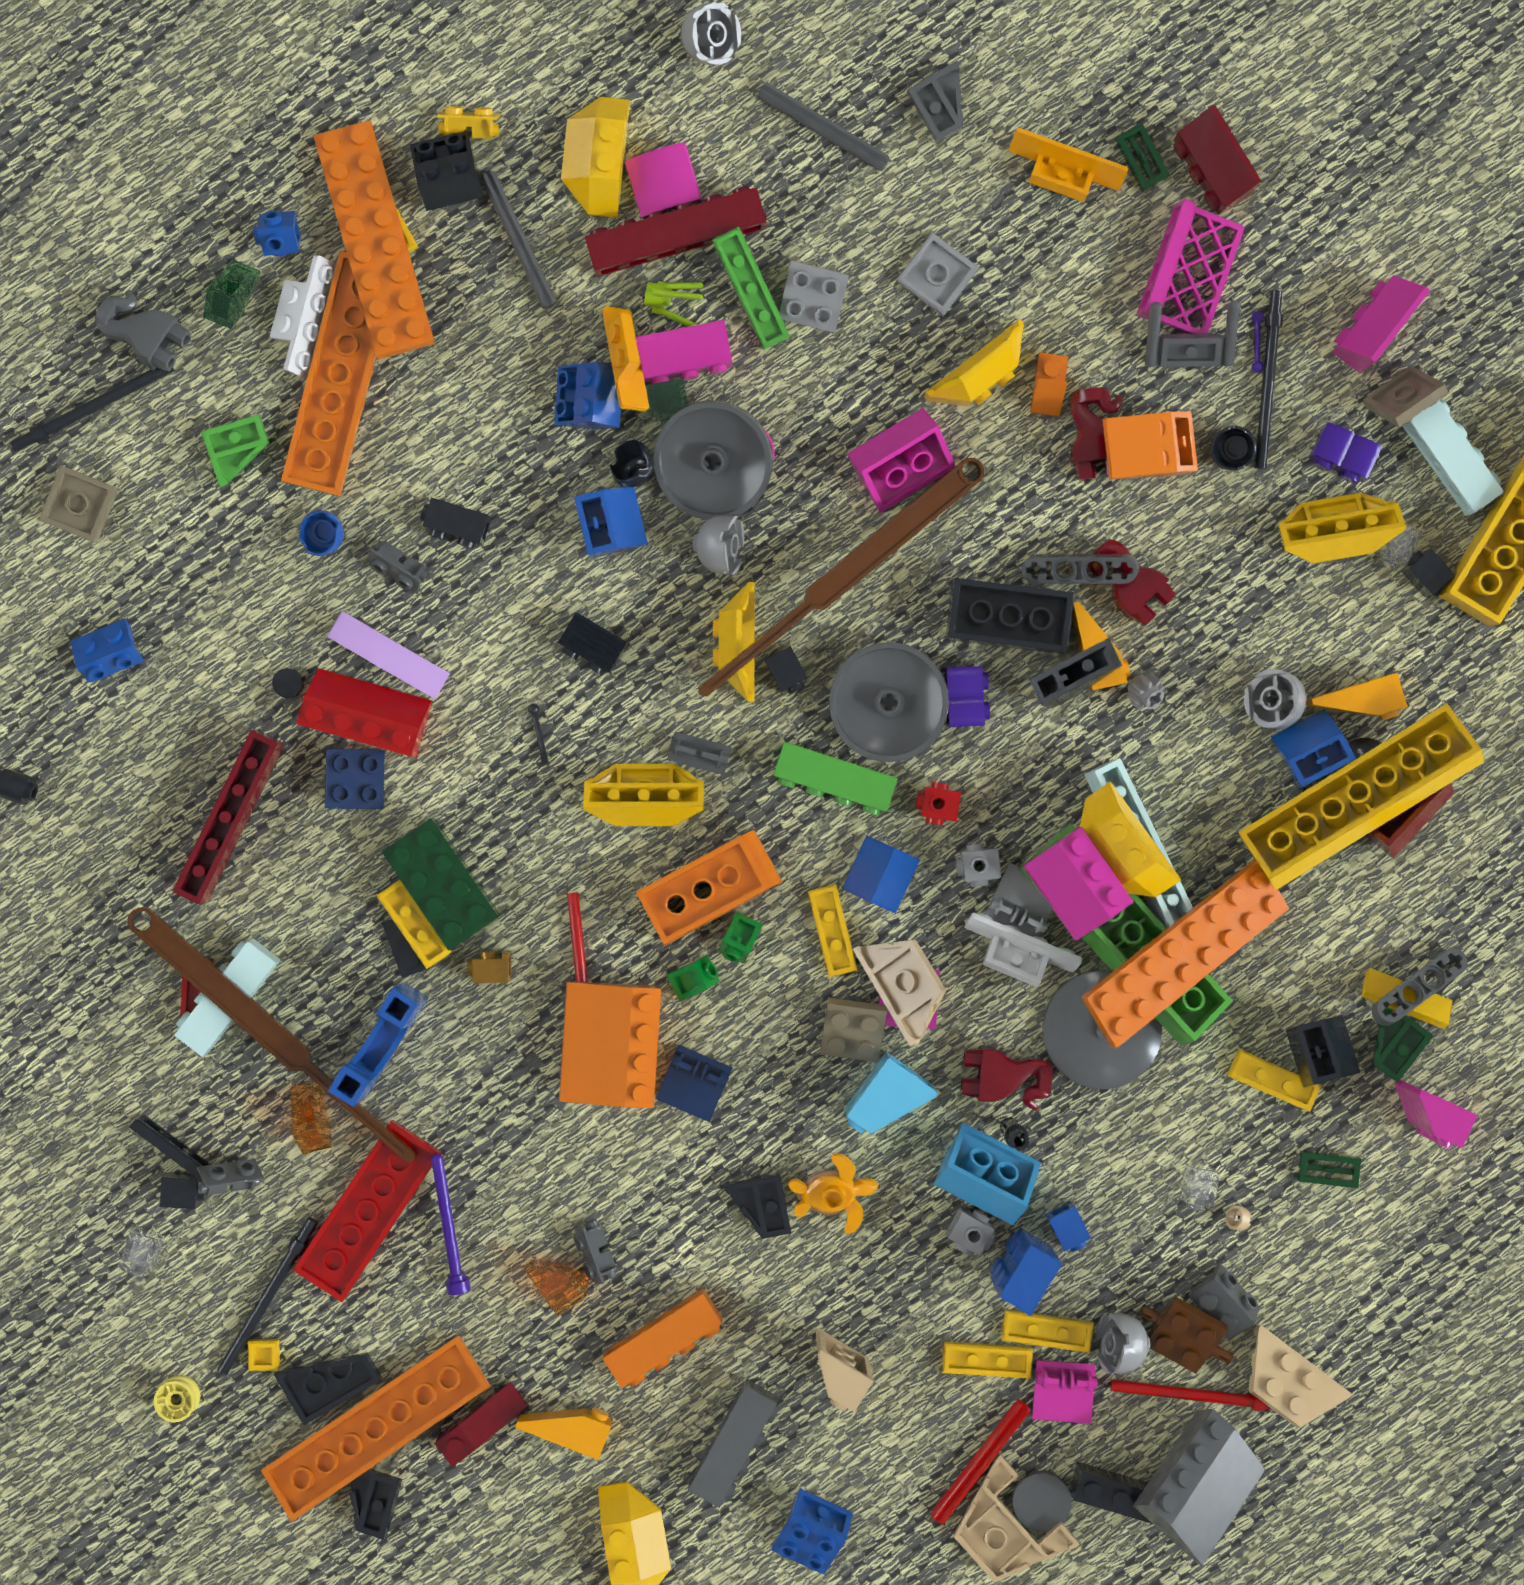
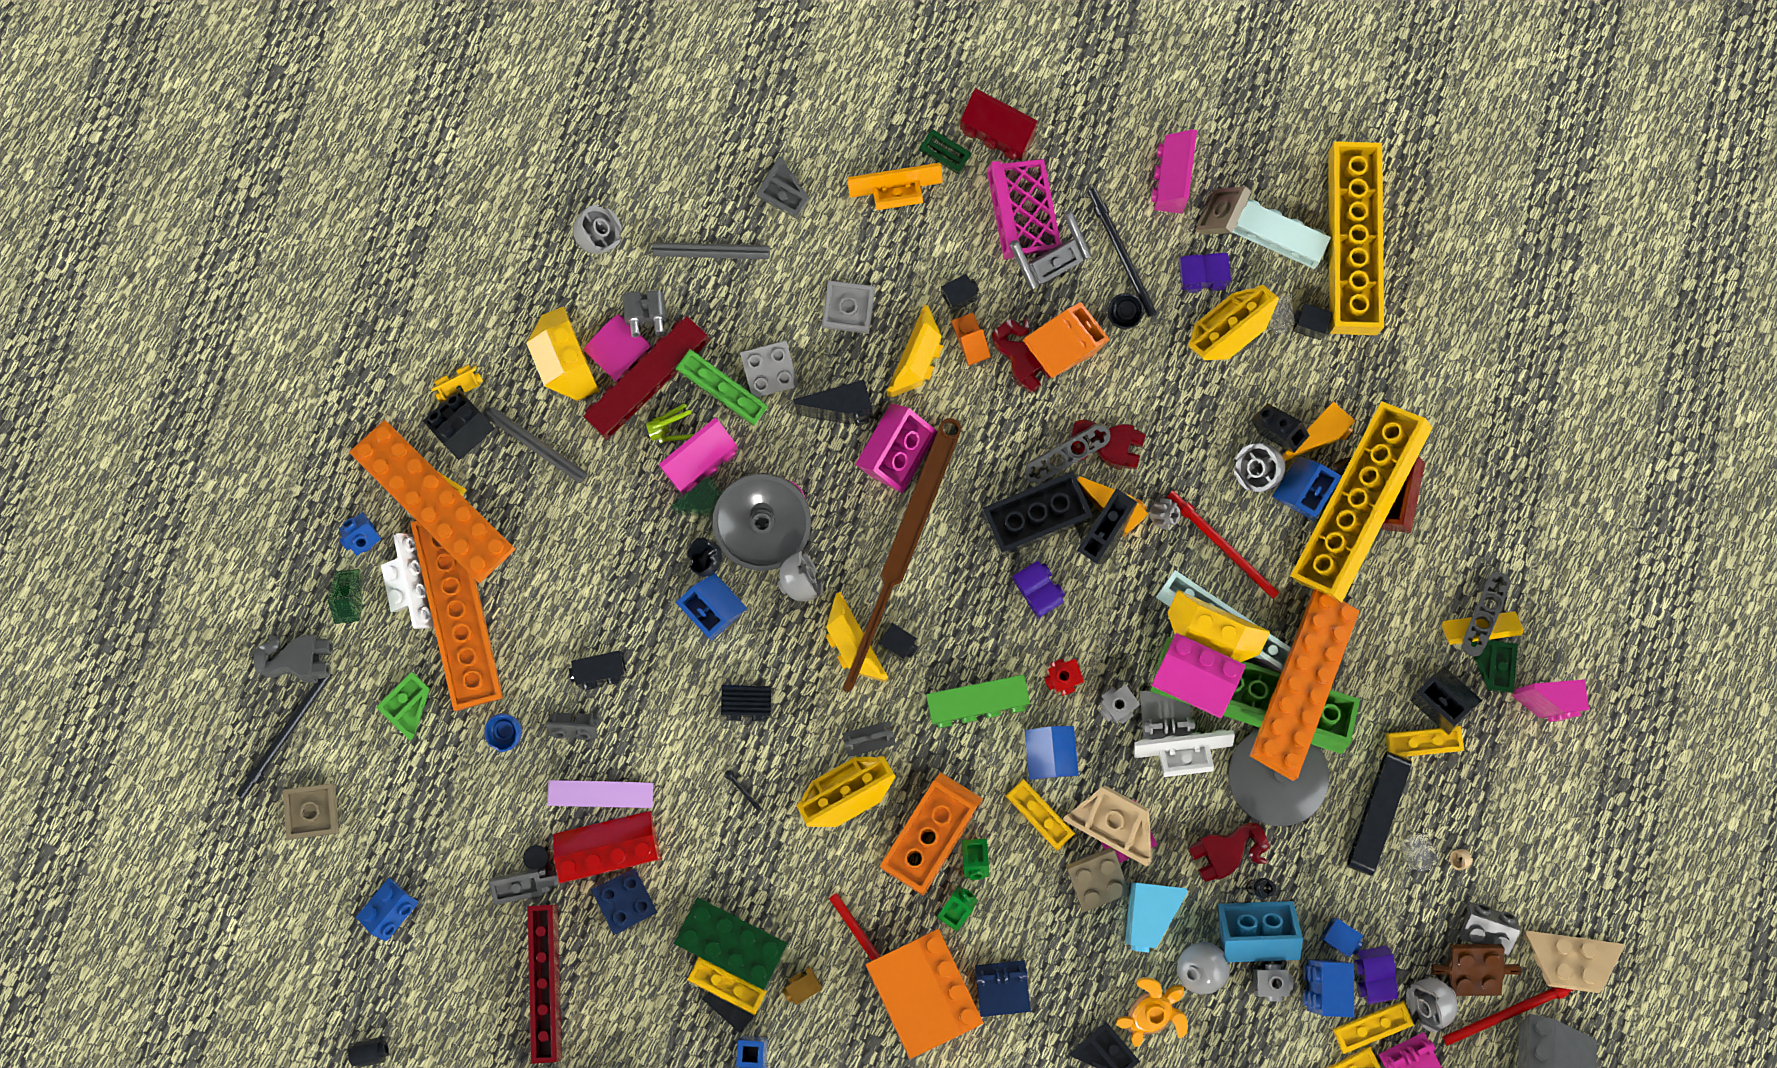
camera: 25 degrees left, 10 degrees down
(258, 703) = (522, 885): none -> dark grey hinge
(587, 397) = (646, 526): blue slope -> none
(625, 359) = (659, 484): light orange bracket -> none
(714, 152) = (644, 308): none -> dark grey piece
(869, 380) = (840, 404): none -> black slope
(889, 702) = (986, 623): dark grey dish -> none
(908, 1178) = (1203, 968): none -> light grey cylinder
(1066, 326) = (959, 292): none -> black brick
(1081, 1283) = (1376, 975): none -> dark purple brick
(1172, 702) = (1188, 510): none -> red bar
(1182, 1125) = (1379, 813): none -> black beam
(1257, 317) = (1089, 216): dark purple hinge -> none
(1304, 1166) = (1485, 793): dark green tile -> none
(1323, 669) = (1280, 428): none -> black brick

